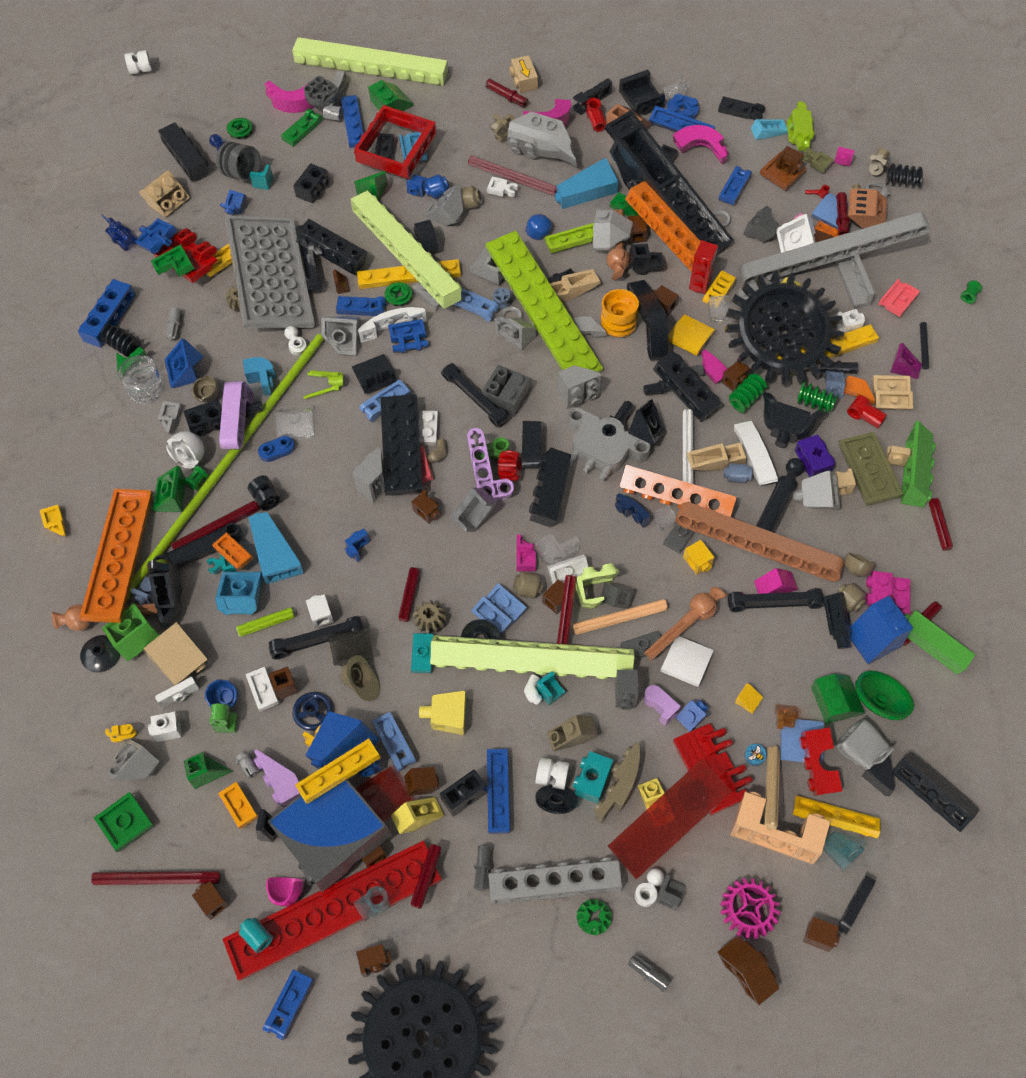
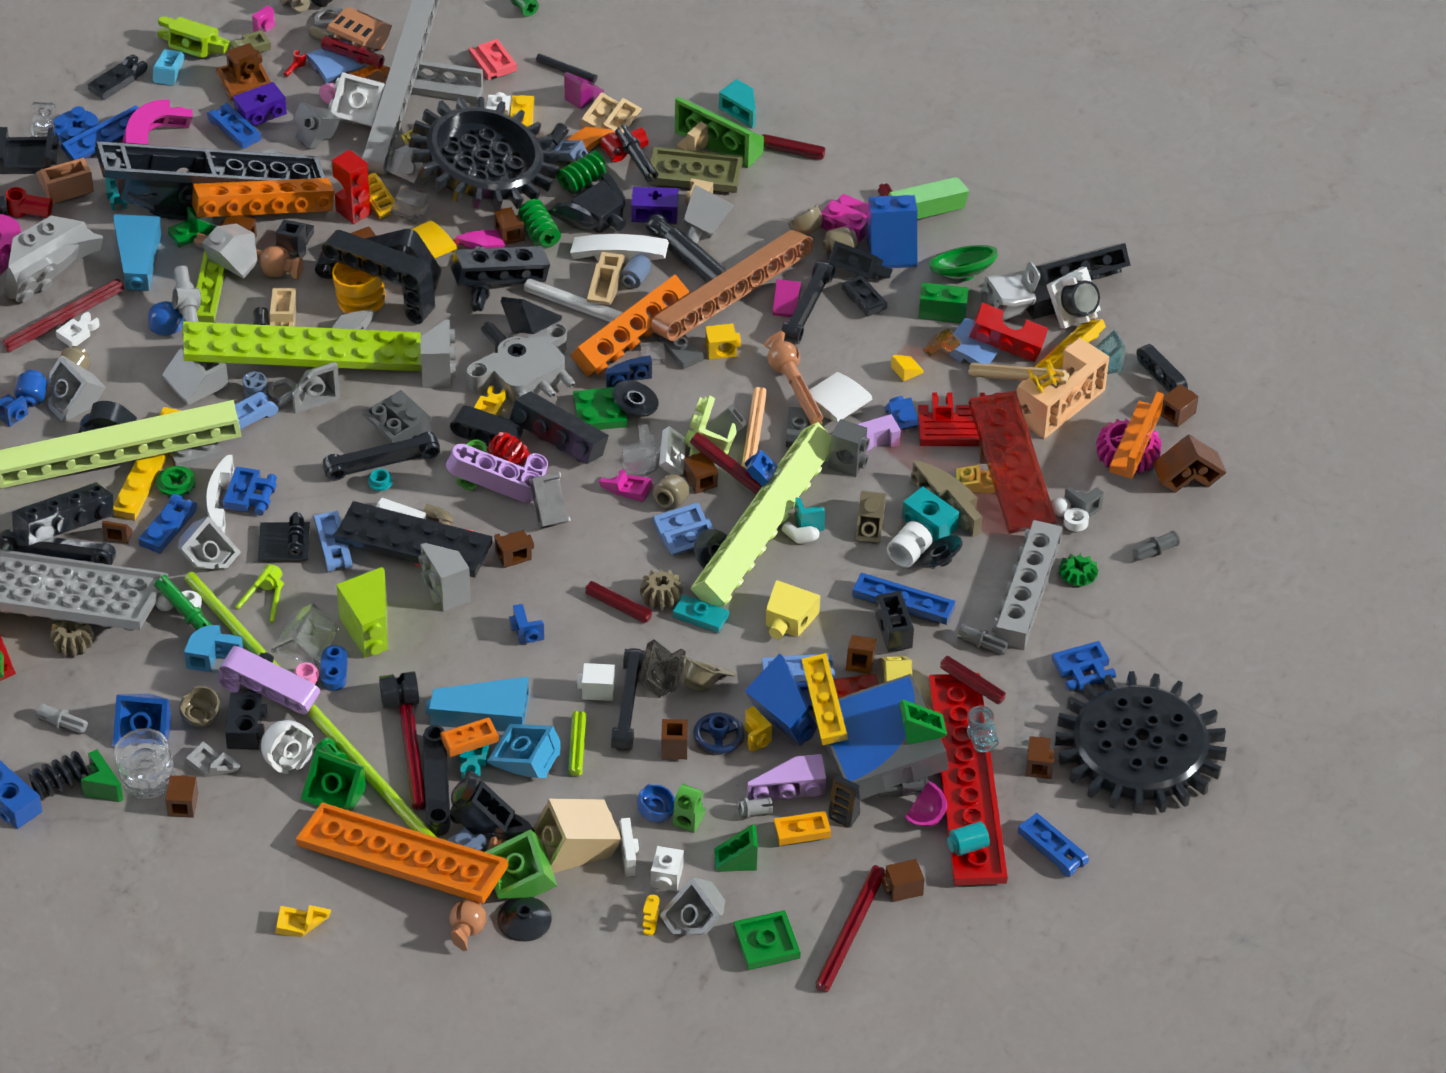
camera: 70 degrees left, 15 degrees down
(130, 411) = (181, 796): none -> reddish brown brick
(262, 435) = (308, 672): none -> bright pink plate
(262, 689) = (666, 767): white plate -> none
(286, 339) = (192, 614): none -> green pin
(319, 445) = (364, 611): none -> lime slope
(333, 848) = (921, 723): none -> green slope
(454, 399) = (380, 480): none -> teal plate
(492, 955) = (1083, 659): none -> blue plate
(549, 226) = (185, 296): none -> light grey pin
(553, 437) = (492, 403): none -> yellow plate
(572, 635) = (761, 467): none -> blue bracket
(591, 506) = (599, 408): none -> green plate
(614, 518) = (635, 398): none -> black dish
(628, 319) = (390, 265): none -> black beam
(749, 911) = (1136, 437): none -> orange fence
(755, 755) = (970, 385): tile -> none
(762, 189) = (261, 104): none -> dark purple brick
(764, 811) = (1051, 372): none -> yellow piece
(807, 638) = (864, 295): none -> black plate
(857, 417) = (632, 146): none -> black pin
(891, 800) = (1074, 296): none -> piece
(962, 468) = (739, 102): none -> teal slope

